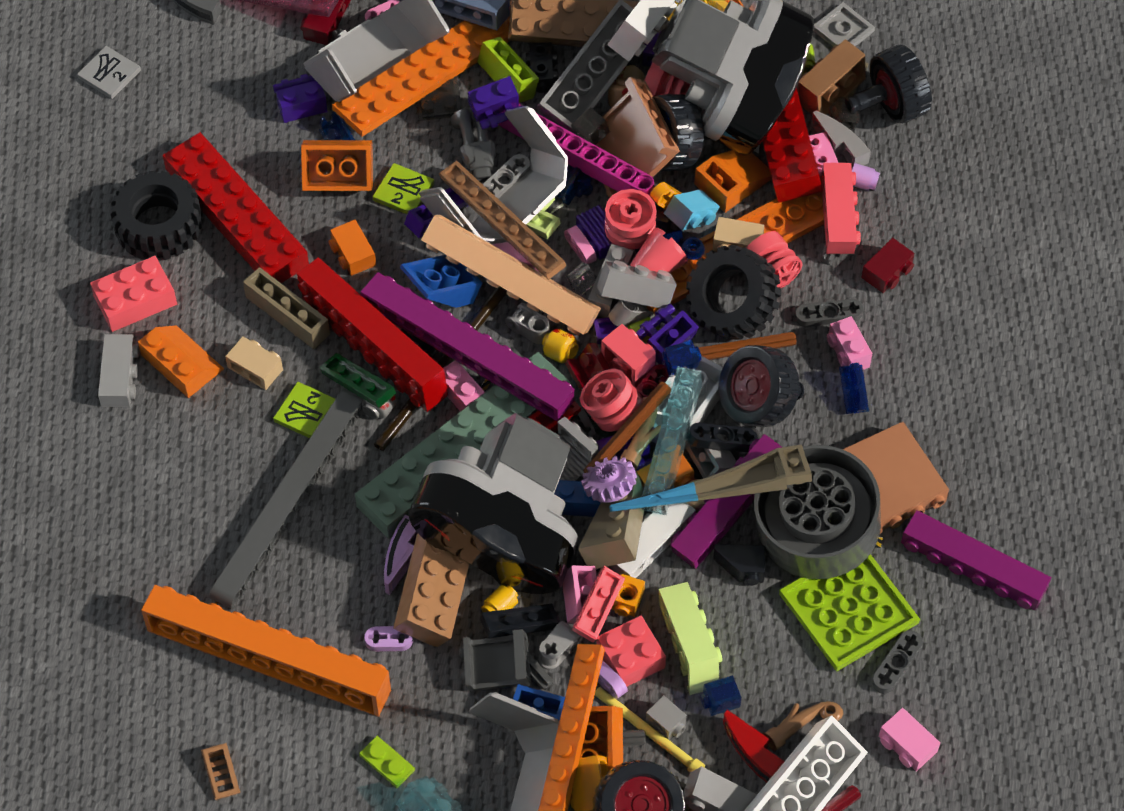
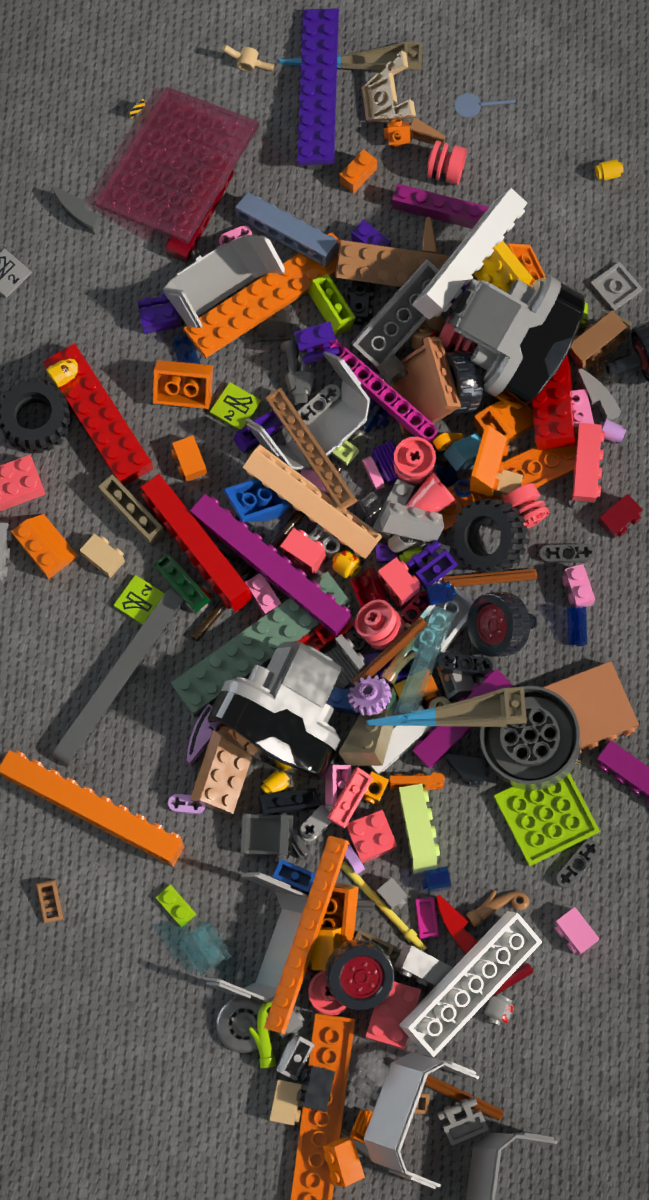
camera: 10 degrees right, 15 degrees up
(188, 160) = (63, 371): none -> yellow rock
(507, 328) = (303, 551): none -> coral brick
(700, 582) = (431, 782): none -> orange hinge
(714, 744) = (426, 918): none -> dark pink tile
(721, 208) = (489, 462): none -> orange slope

